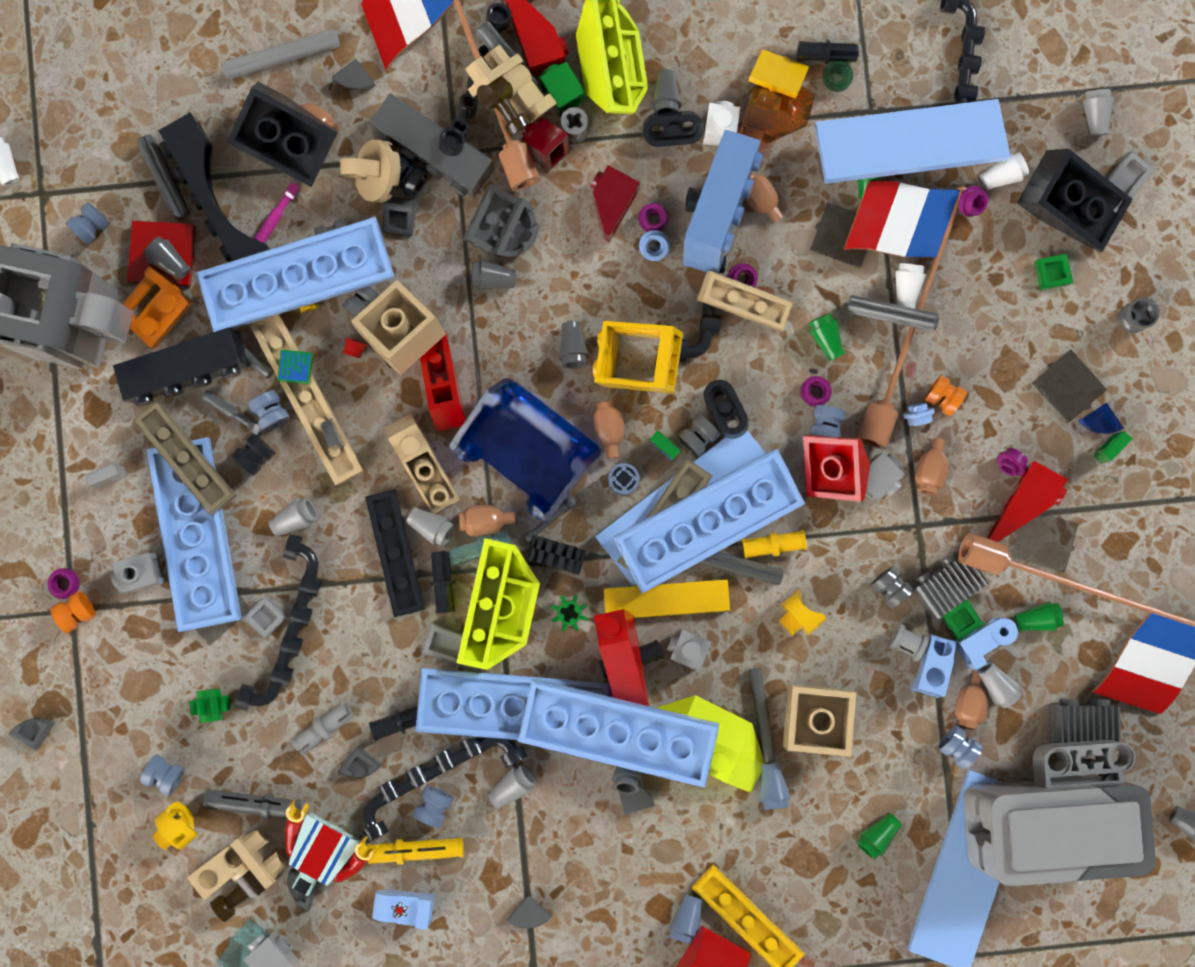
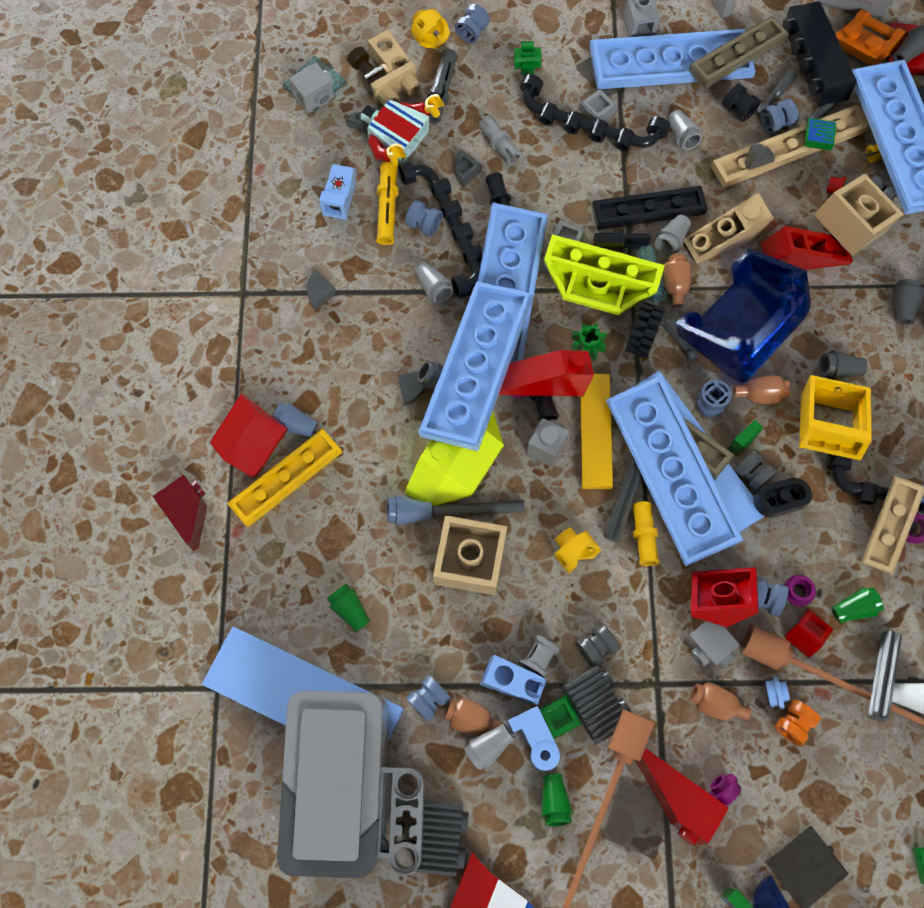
camera: 95 degrees right, 15 degrees down
(855, 381) = (809, 633): none -> red slope

